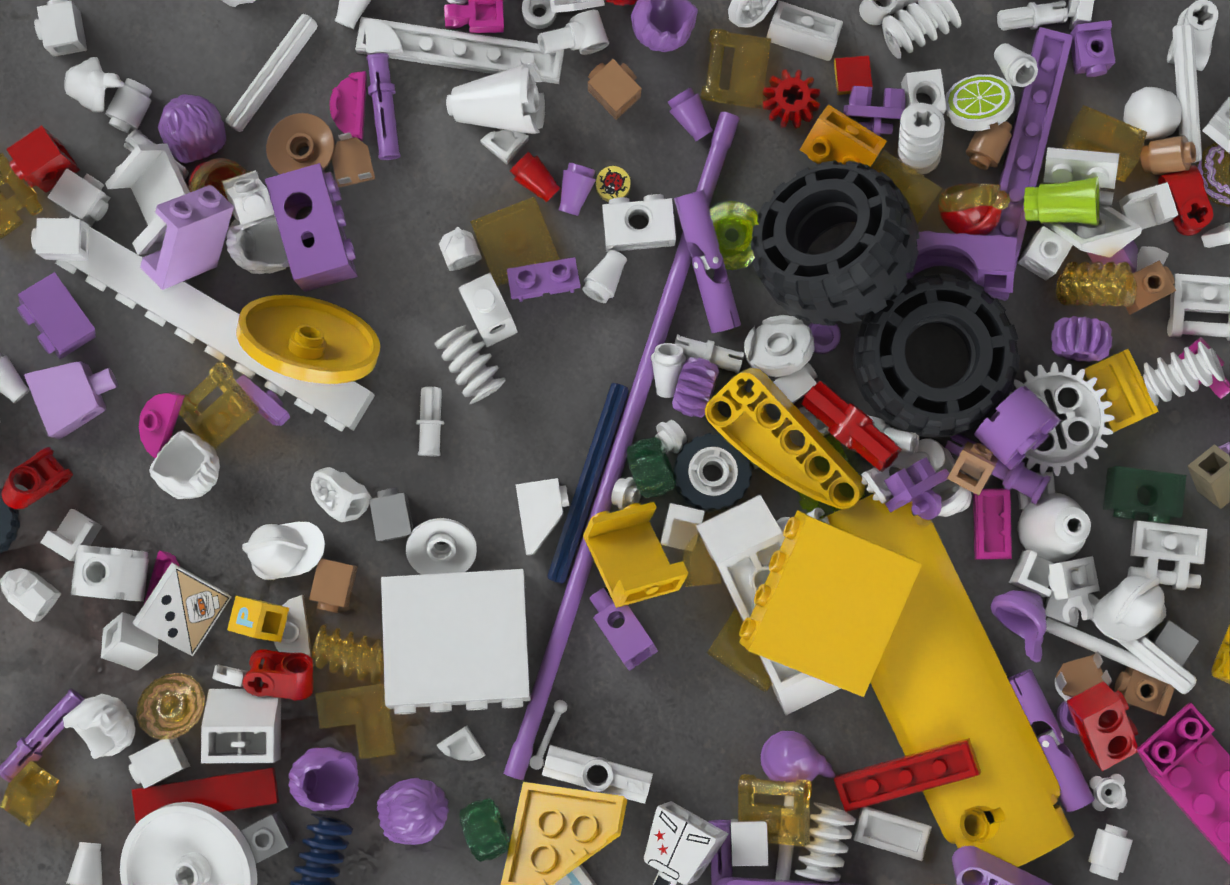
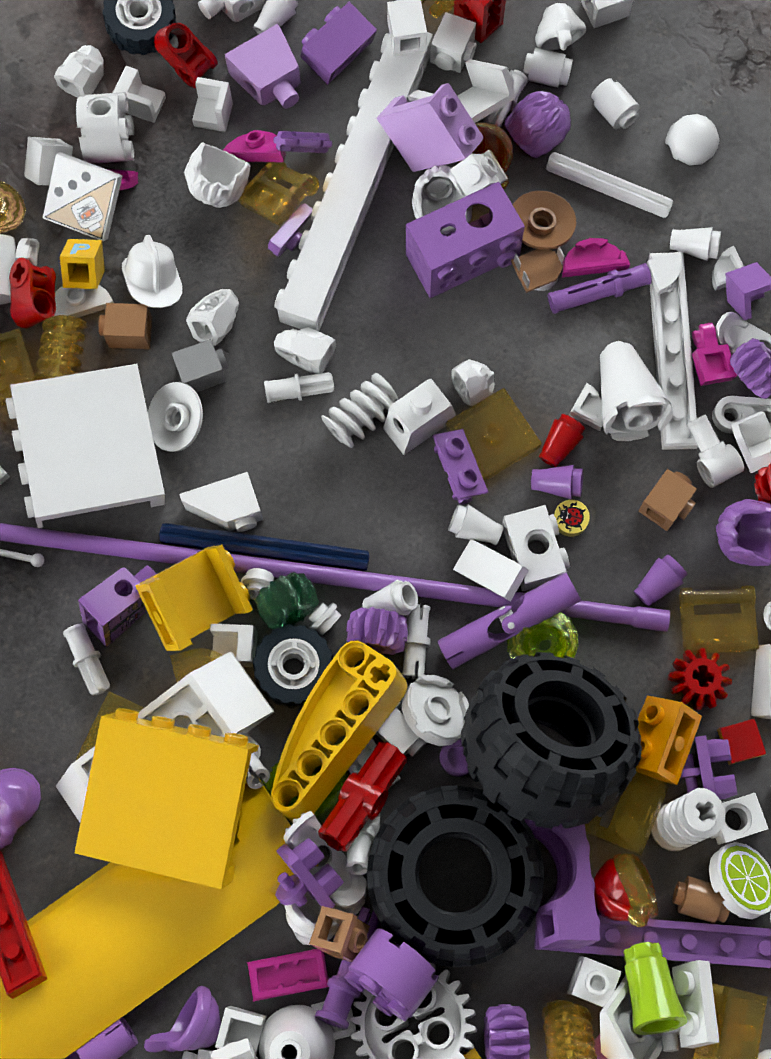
camera: 85 degrees right, 10 degrees down
(100, 460) = (212, 105): none -> white panel
(165, 372) = (302, 142): none -> medium lavender axle
(185, 46) = (615, 104): none -> white brick
(307, 339) = (352, 249): yellow dish -> none
(391, 408) = (306, 348): none -> white rock
(654, 269) = (491, 569): none -> white tile
(669, 669) = (87, 659): none -> white axle

